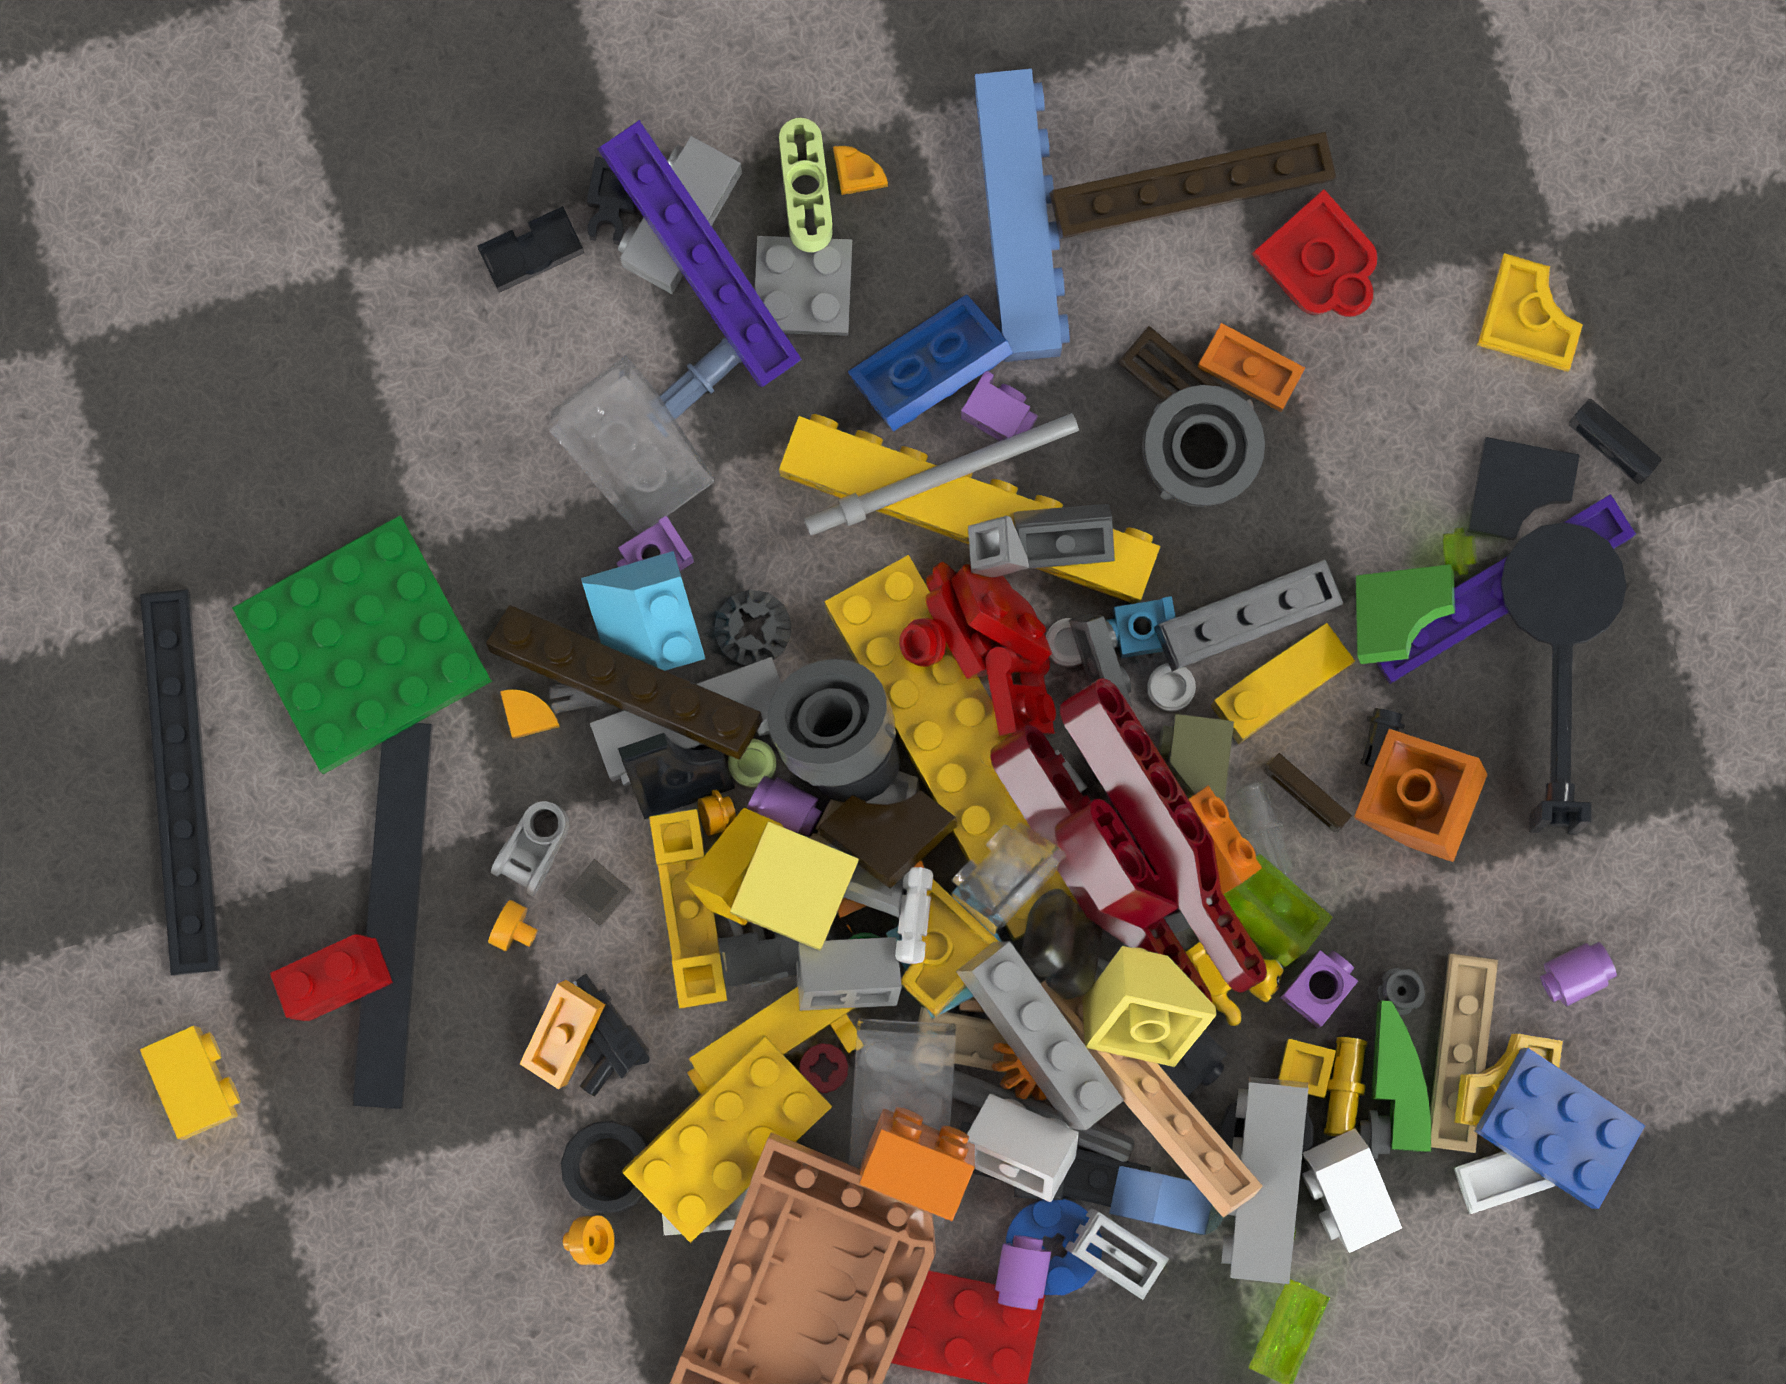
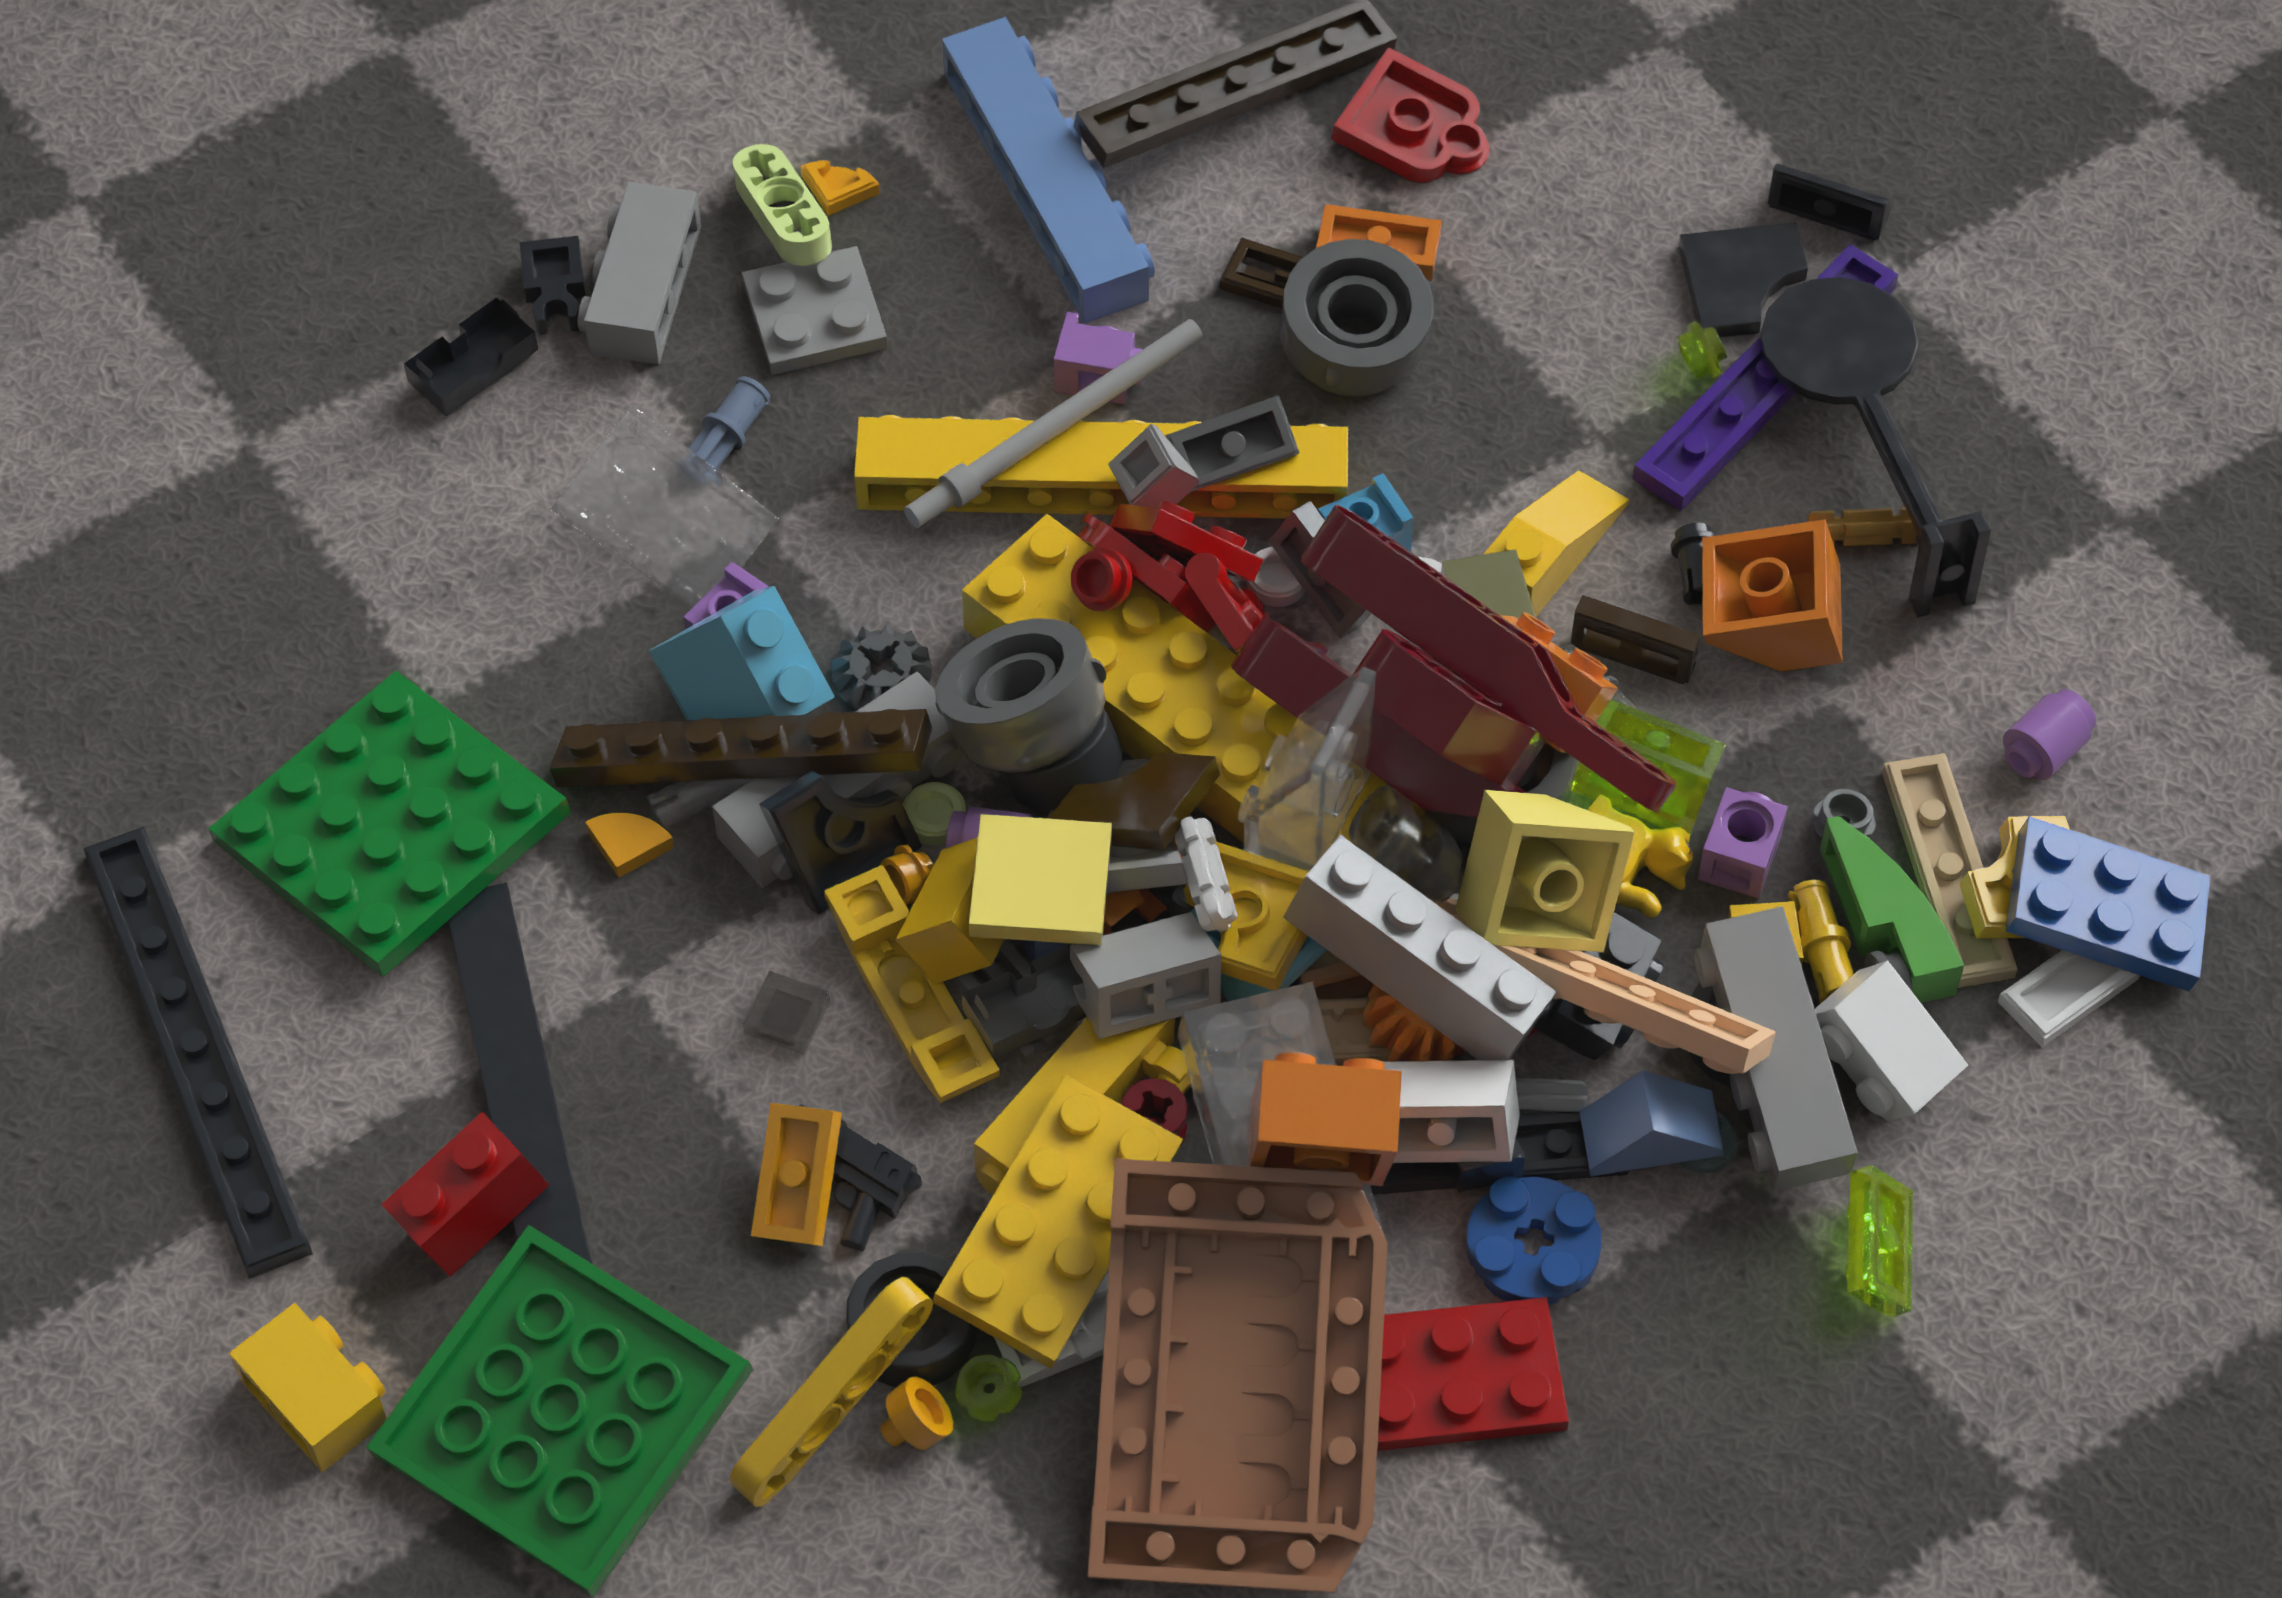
camera: 20 degrees left, 25 degrees down
(351, 1157) = (560, 1410): none -> green plate
(511, 927) = (686, 1076): light orange tile -> none
(531, 849) = (684, 984): light grey piece -> none
(533, 1214) = (831, 1391): none -> yellow beam
(632, 1233) = (980, 1372): none -> clear neon green plate
(699, 254) = (680, 282): dark purple plate -> none
(930, 362) = (998, 328): blue plate -> none
(1022, 1272) = (1508, 1260): medium lavender brick -> none
(1088, 1234) = (1617, 1223): tile -> none
(1248, 615) = (1481, 474): tile -> none
(1397, 606) = (1656, 420): bright green tile -> none
(1513, 743) = (1867, 526): none -> pearl gold axle
(1525, 318) = (1672, 118): yellow tile -> none

